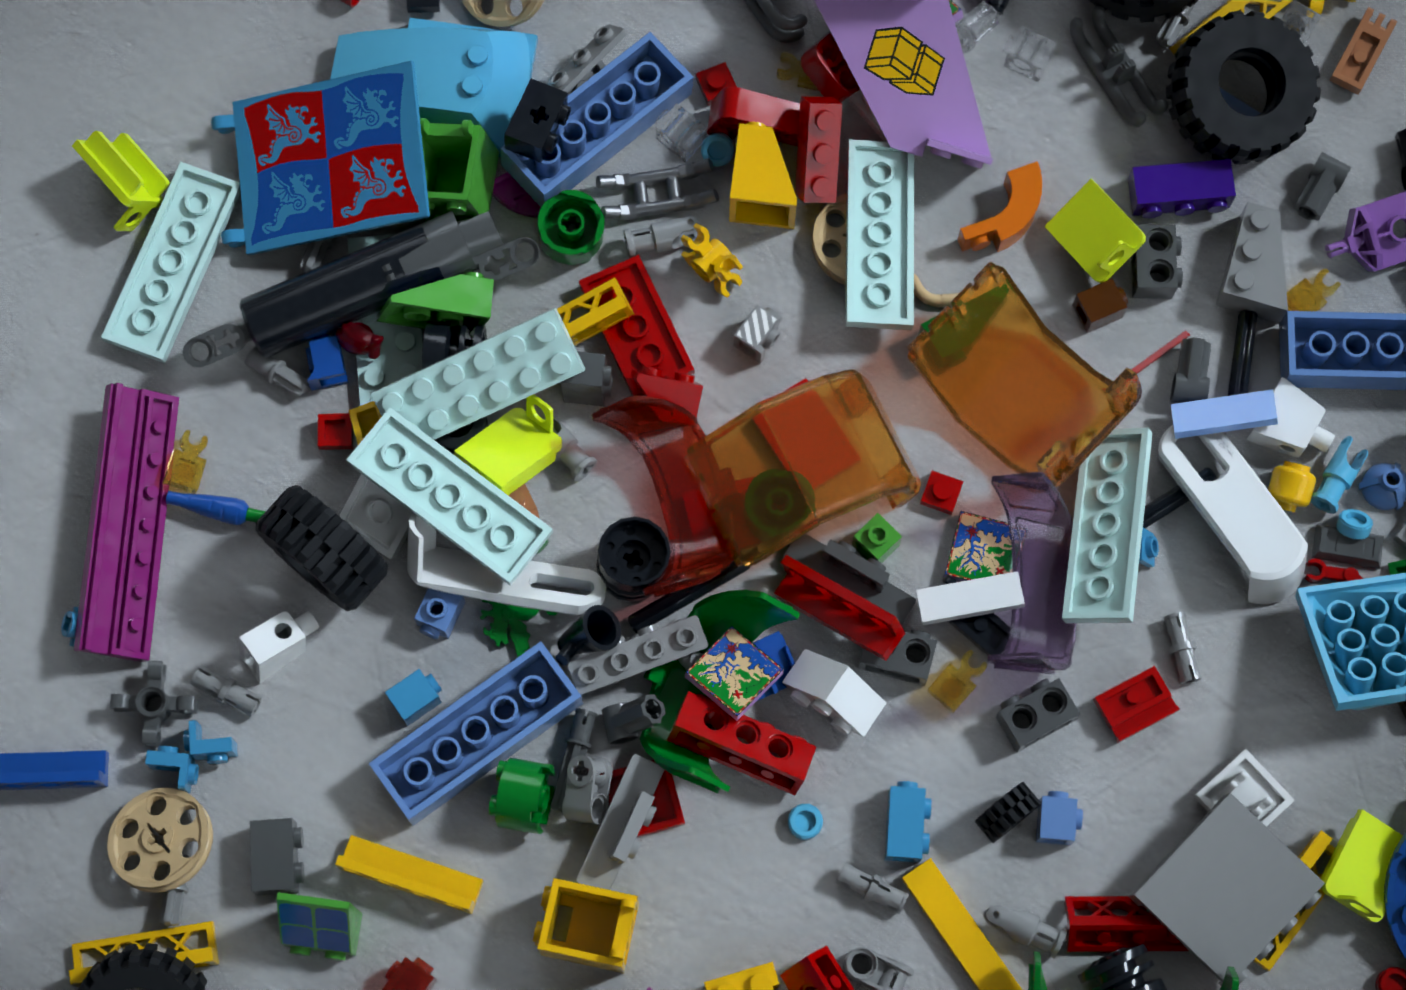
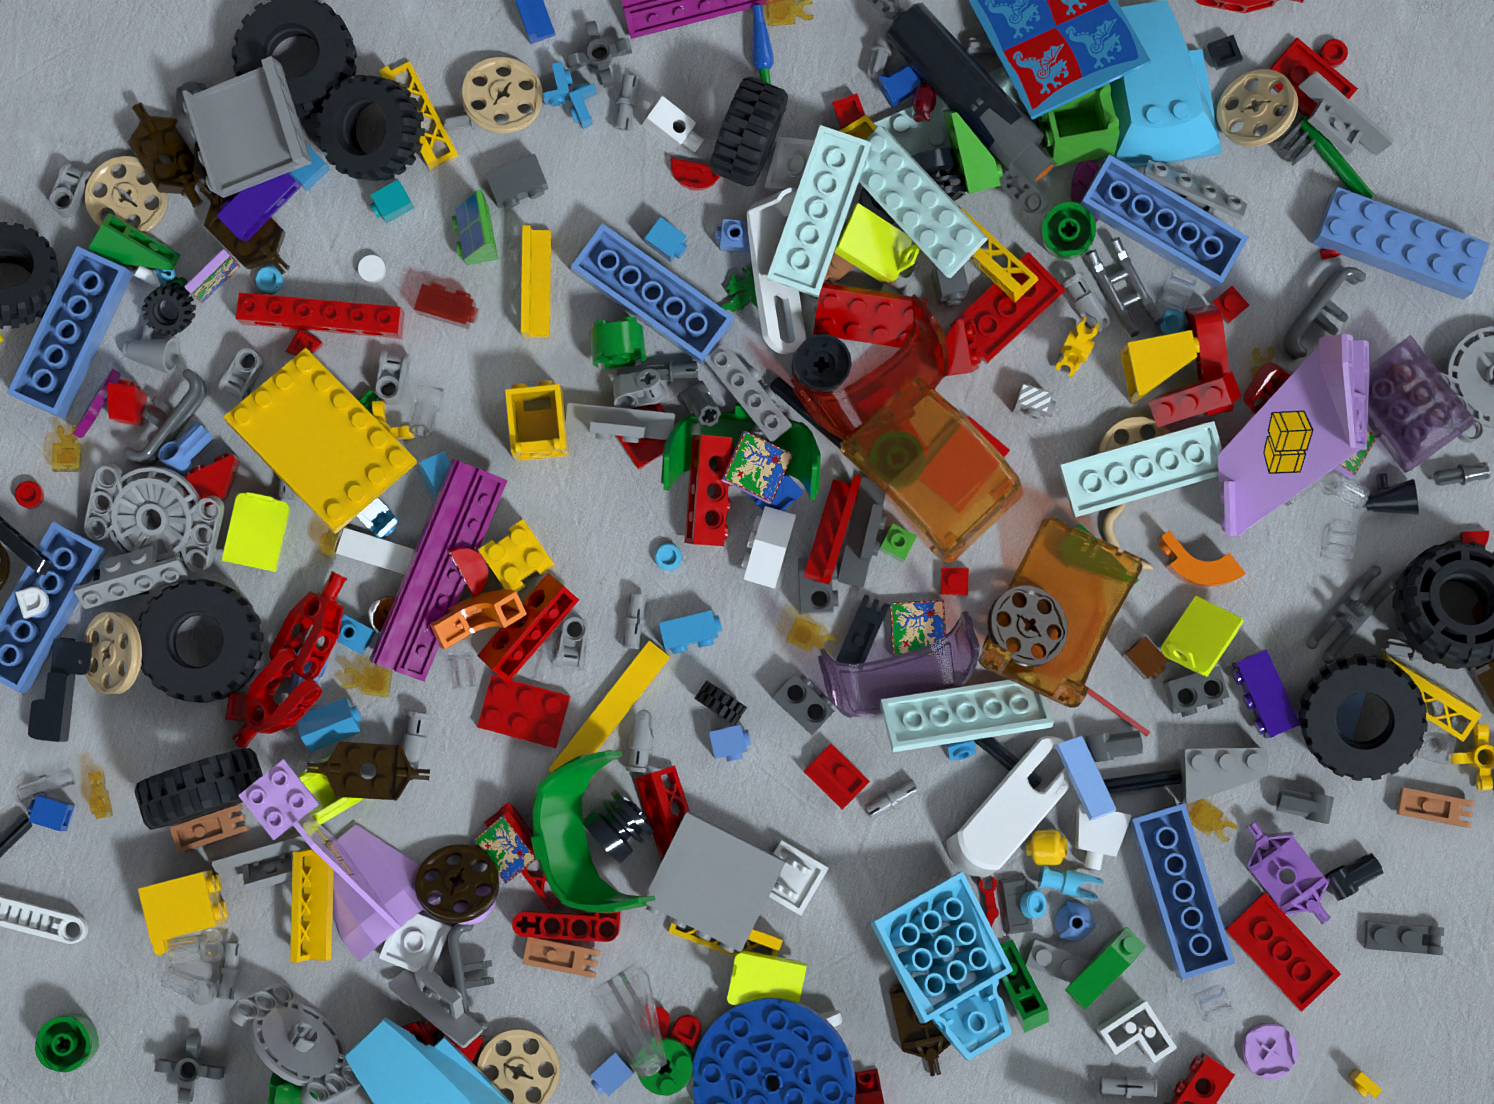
camera: 70 degrees right, 10 degrees up
(344, 640) = (693, 175): none -> red tile
(537, 104) = (1152, 167): black brick -> none
(591, 489) = (864, 315): none -> red plate
(592, 632) = (754, 353): black piece -> none
(970, 598) = (874, 626): white tile -> none
(1022, 409) = (1038, 630): none -> wedge

